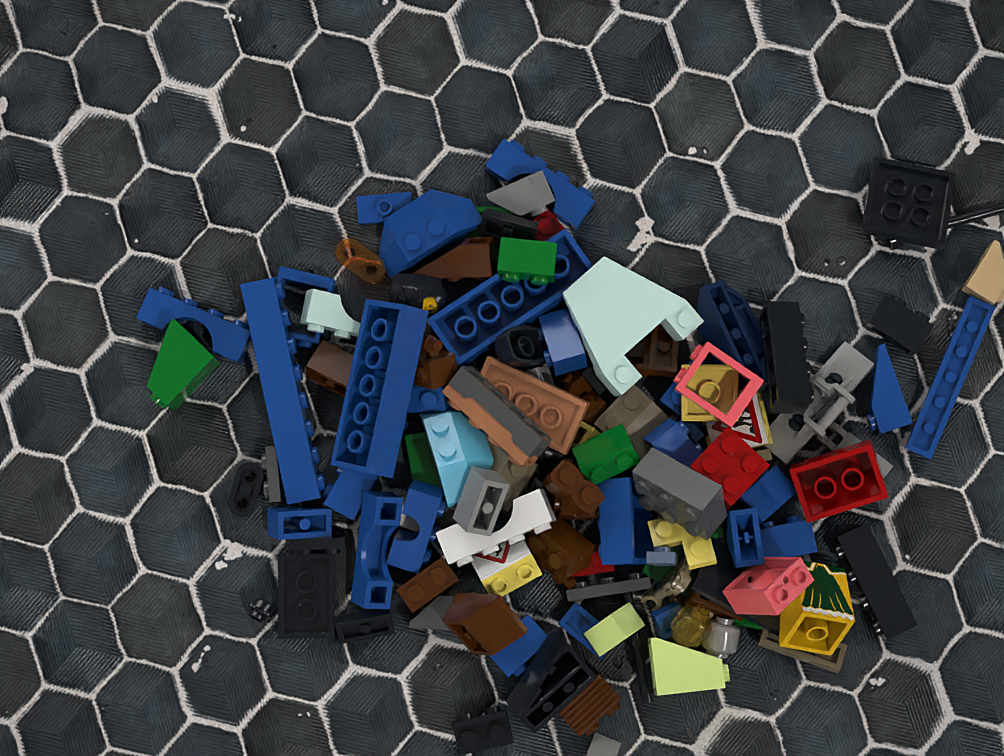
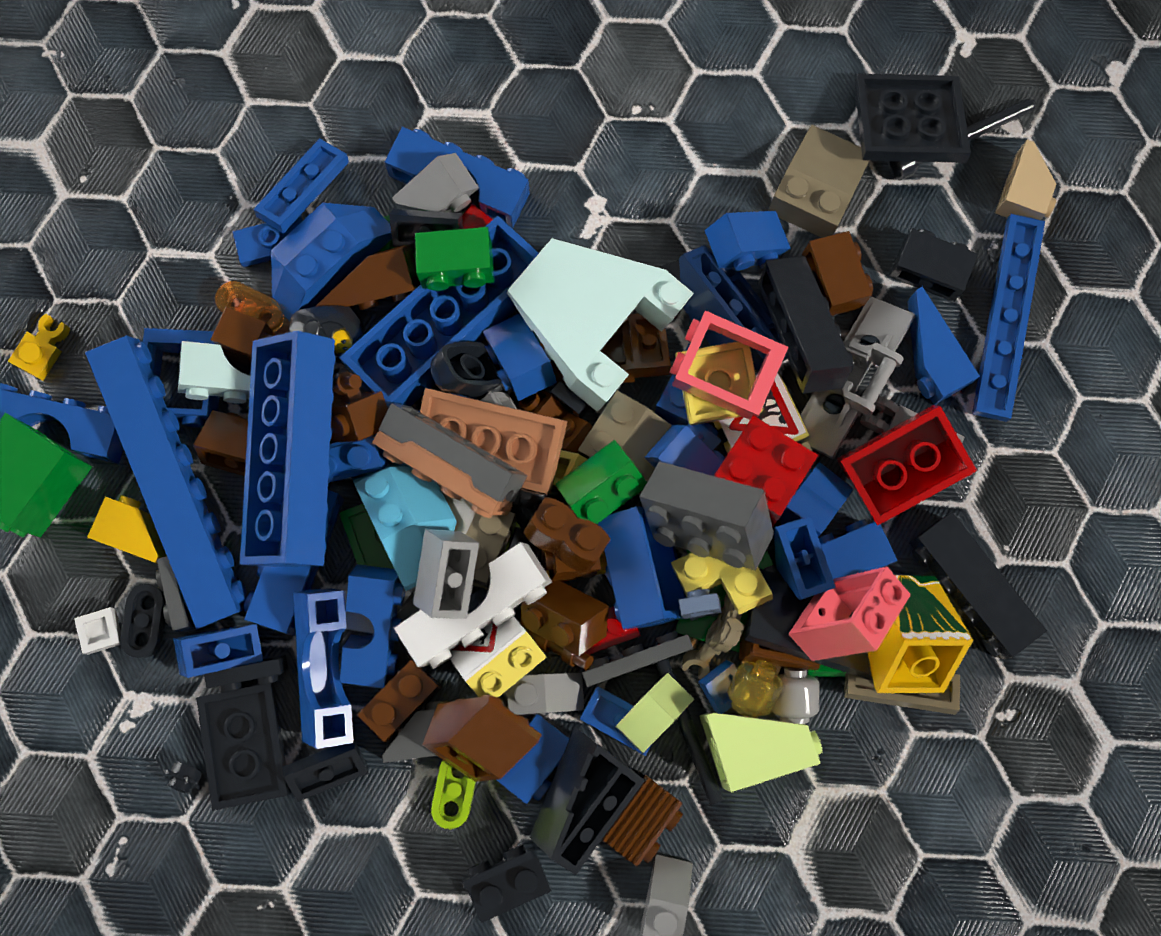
camera: 15 degrees left, 5 degrees down
(190, 265) = (38, 353): none -> yellow plate
(212, 491) = (98, 630): none -> white plate
(244, 418) = (127, 529): none -> yellow slope
(355, 289) = (236, 335): none -> reddish brown brick
(416, 170) = (301, 185): none -> blue plate
(456, 657) = (451, 789): none -> lime plate
(537, 601) = (546, 694): none -> light grey slope
(756, 281) = (747, 239): none -> blue brick
(822, 319) = (839, 272): none -> reddish brown brick
(825, 240) = (819, 182): none -> dark tan slope

